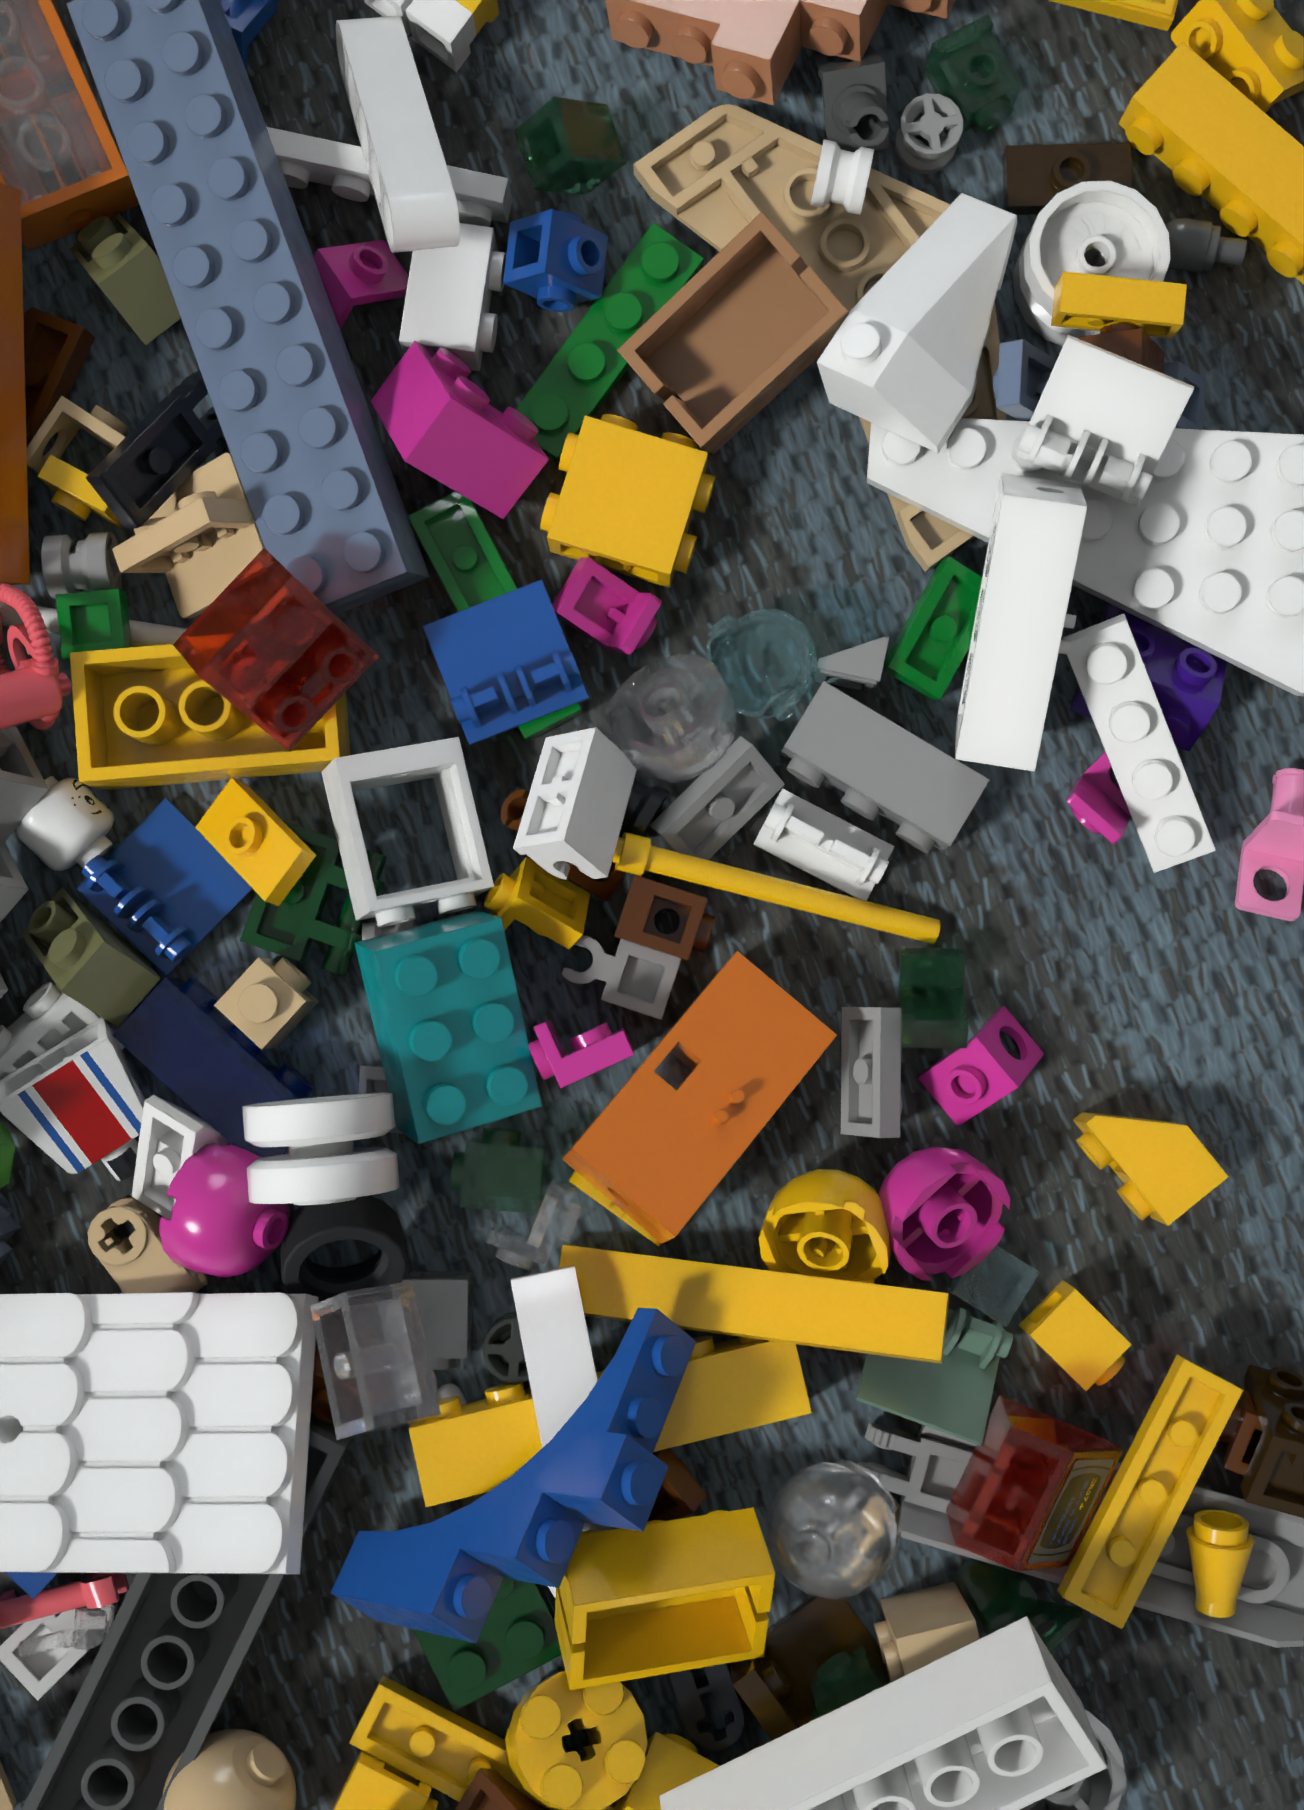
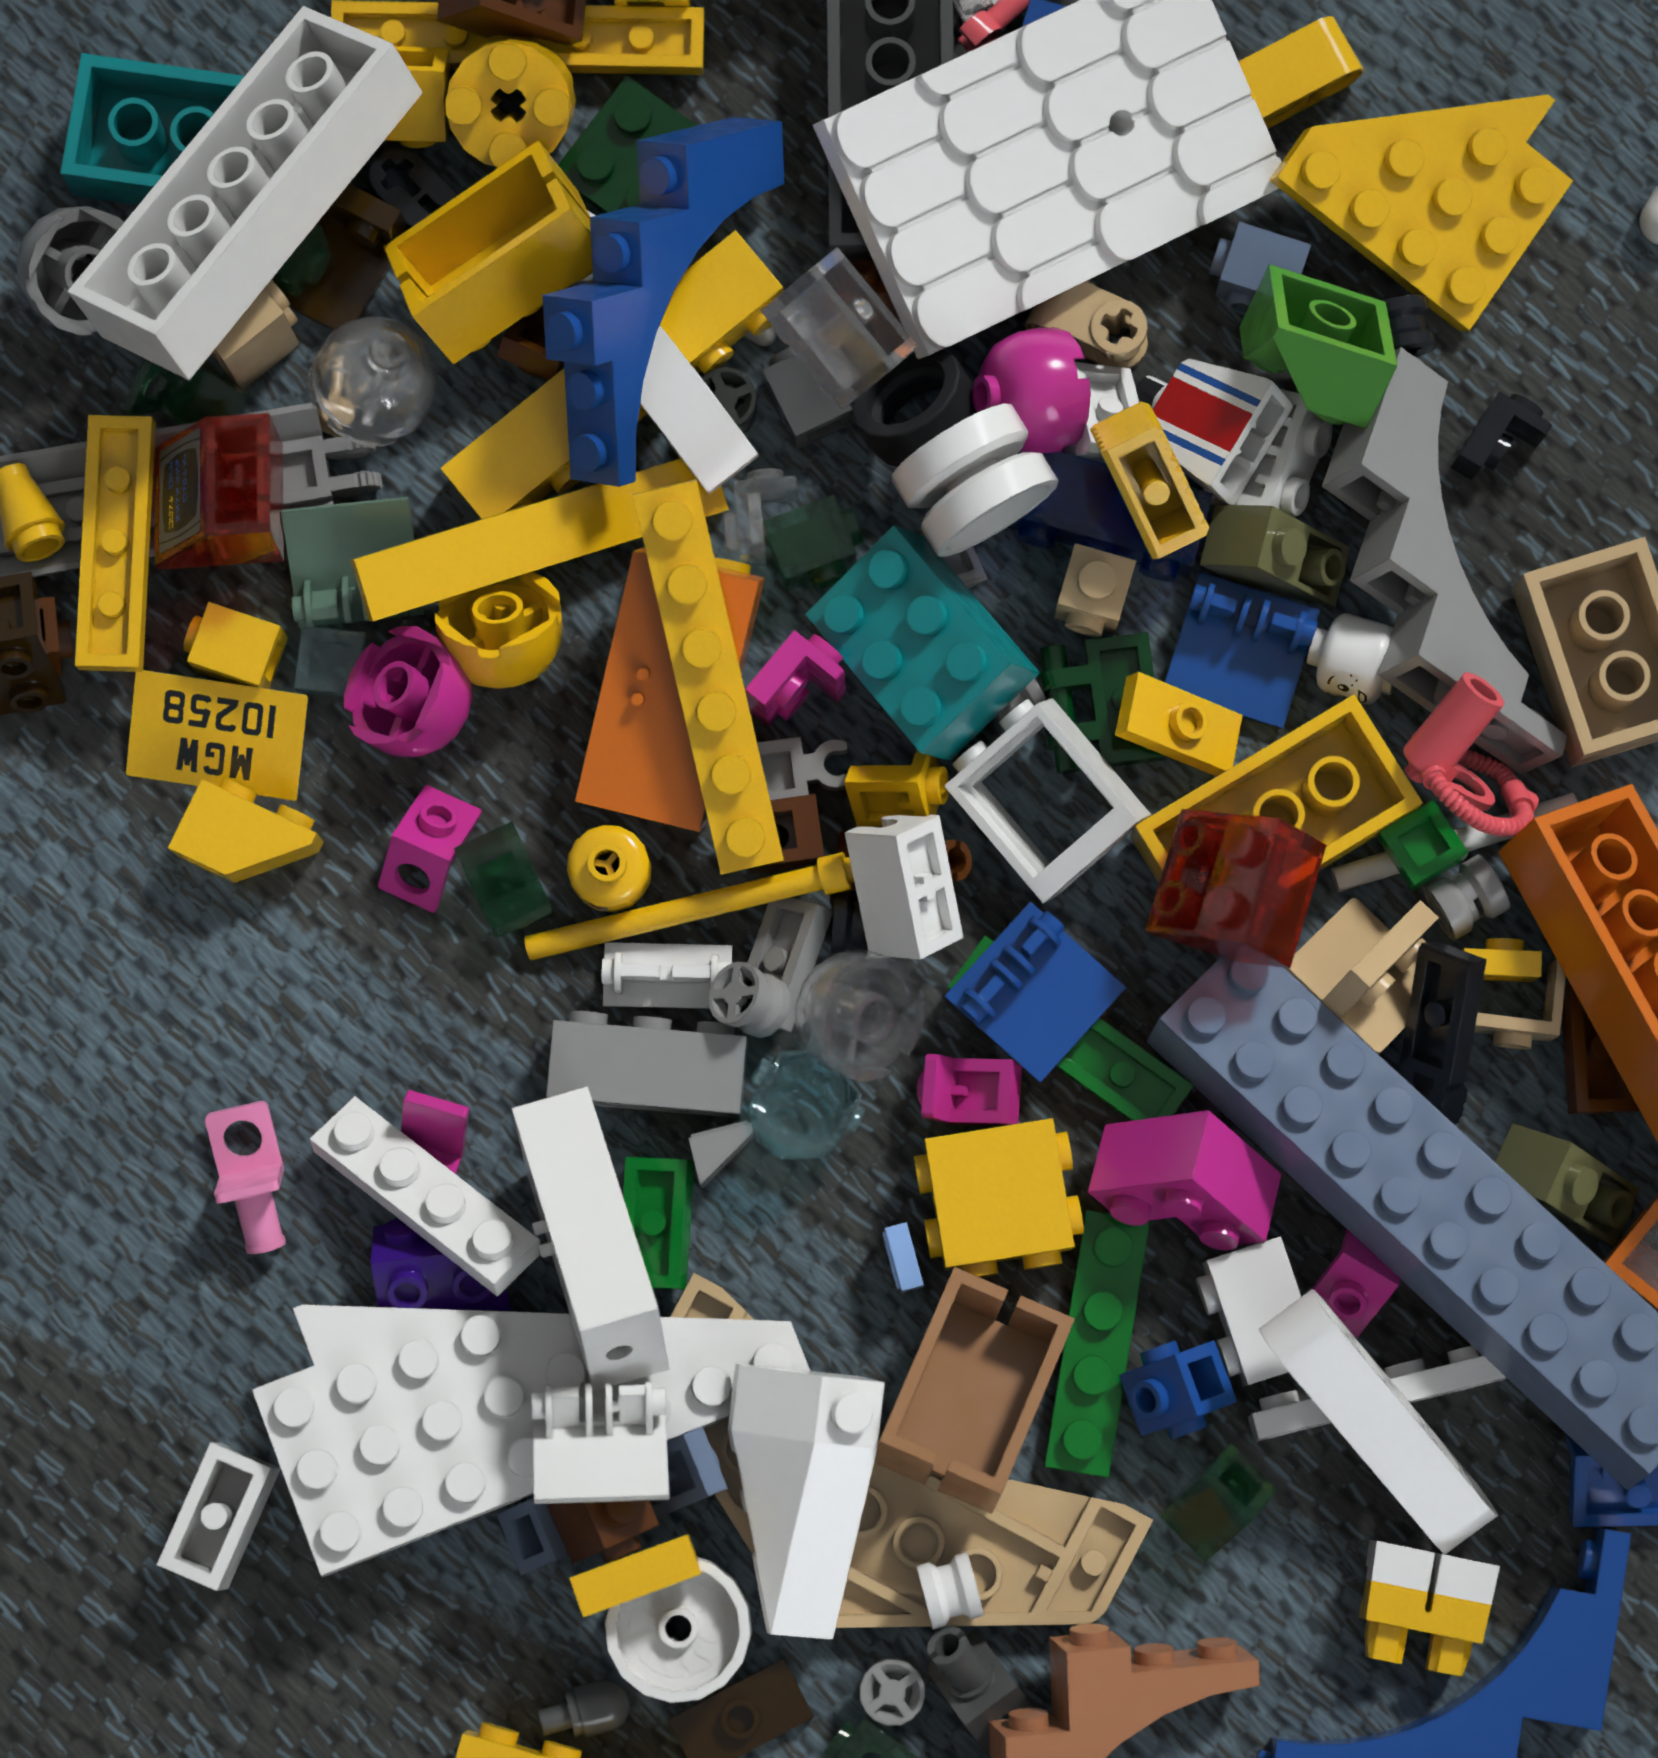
camera: 155 degrees right, 5 degrees down
(156, 1066) = (1150, 479): none -> yellow brick
(661, 1089) = (708, 676): none -> yellow plate
(739, 491) = (902, 1258): none -> light blue tile
(766, 792) = (749, 999): none -> light grey wheel
(811, 973) = (619, 888): none -> yellow head
(871, 1072) = (527, 790): light grey plate -> none
(1128, 1265) = (216, 730): none -> yellow sticker

